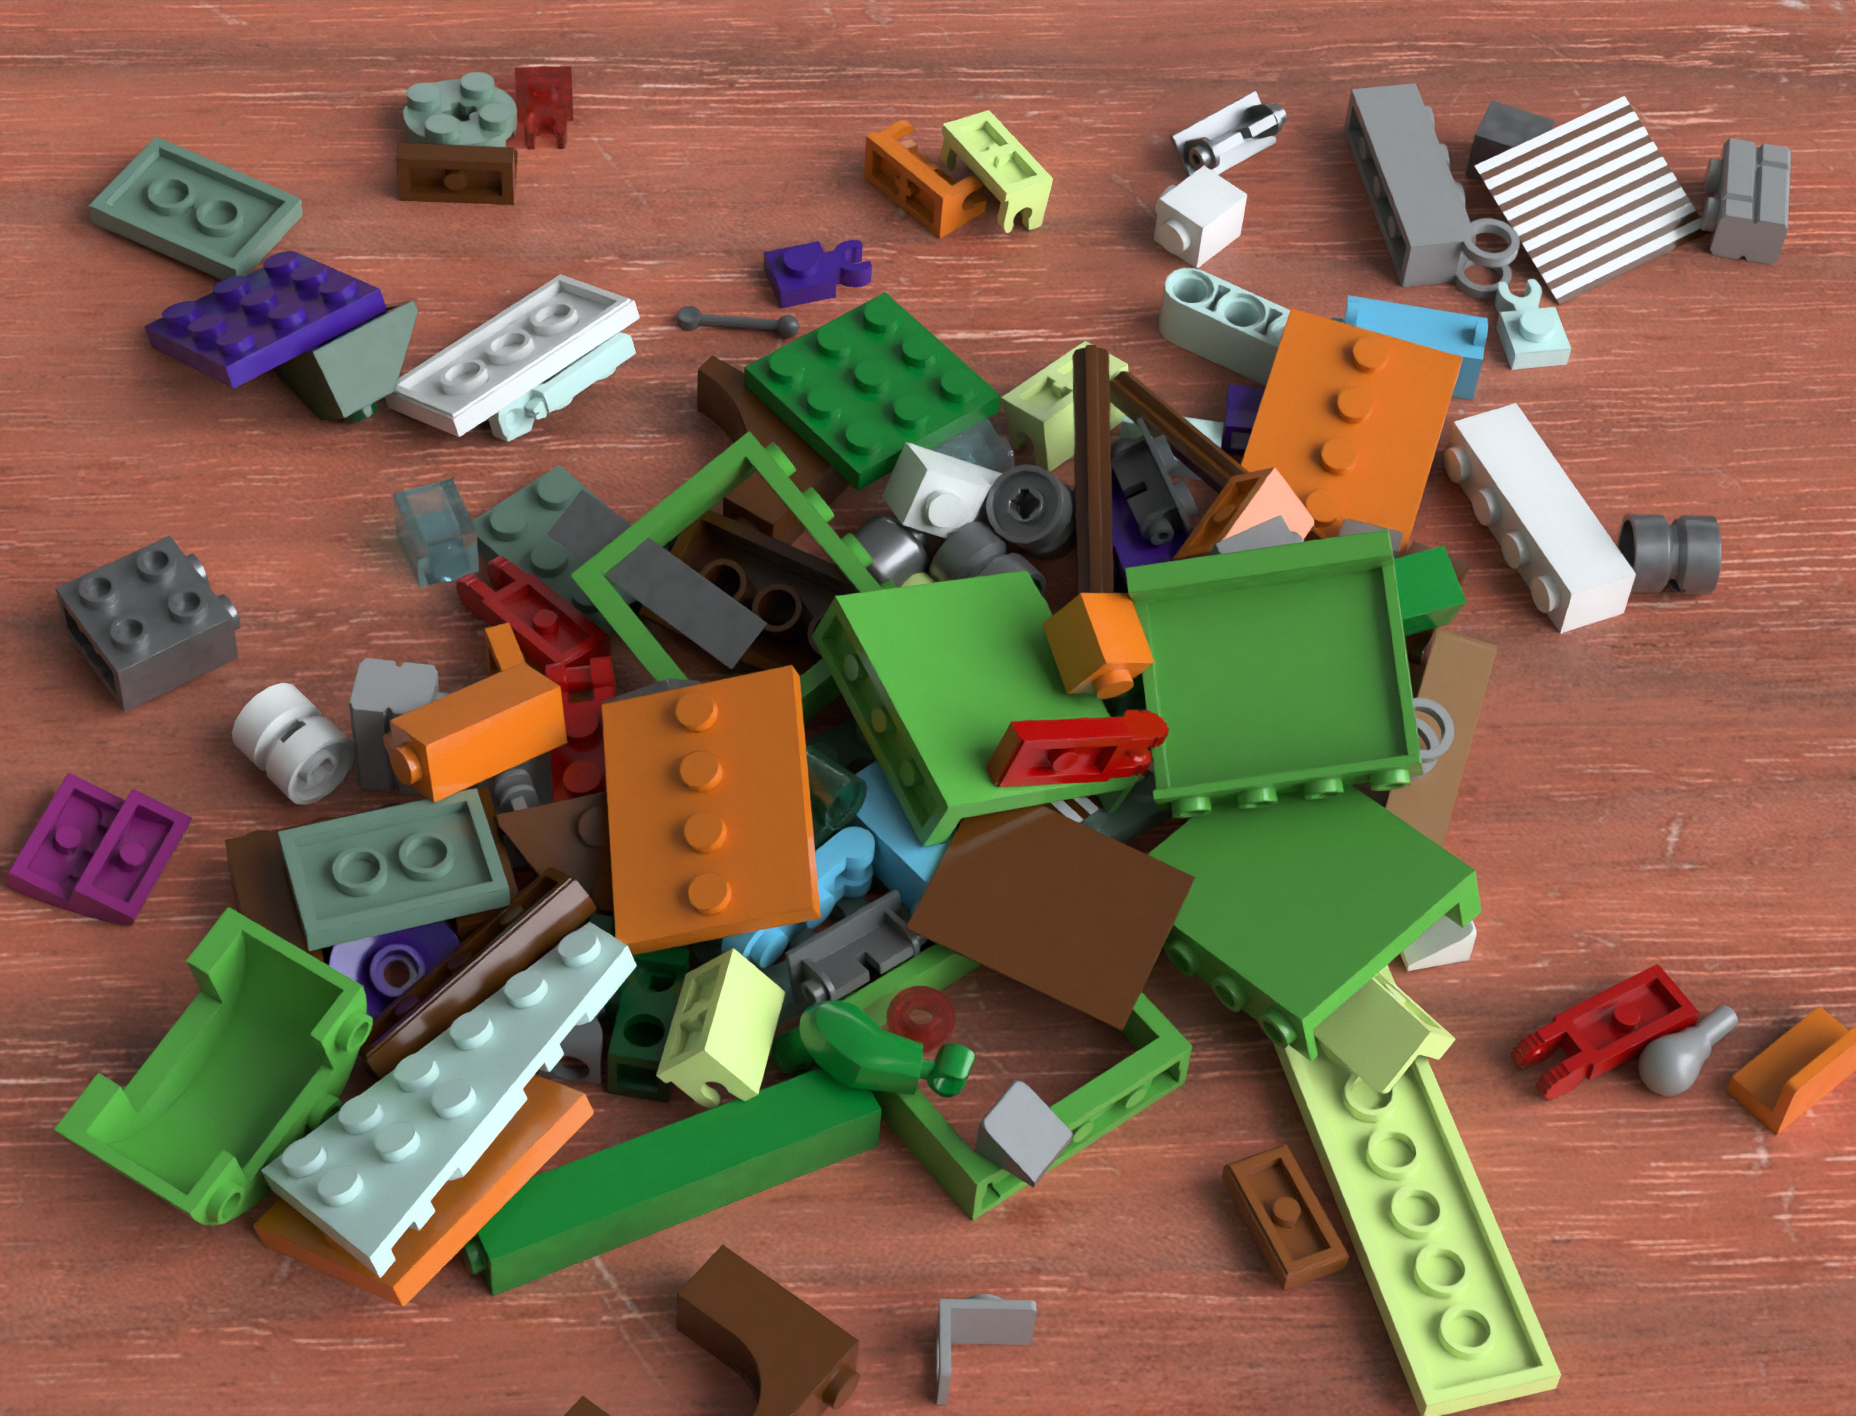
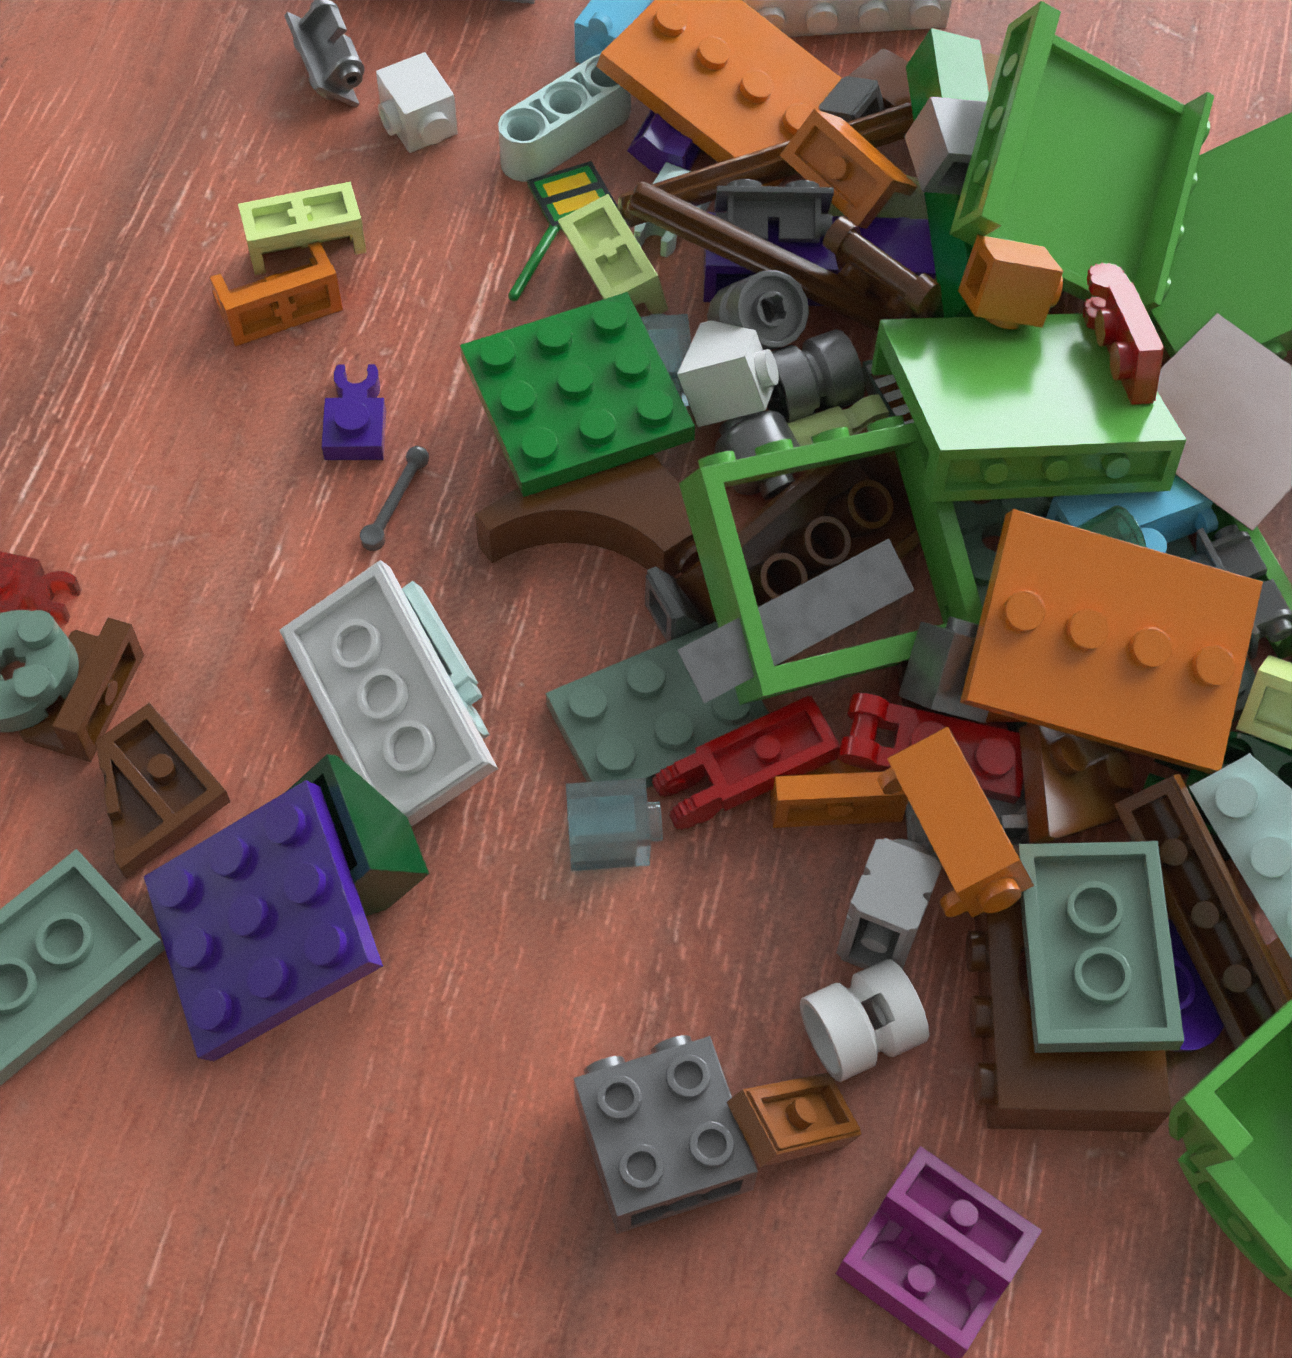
camera: 70 degrees left, 10 degrees up
(181, 704) = (794, 1118): none -> dark orange plate
(378, 235) = (152, 788): none -> reddish brown wing
(1093, 552) = (871, 270): none -> reddish brown plate
(1151, 360) = (558, 196): none -> piece

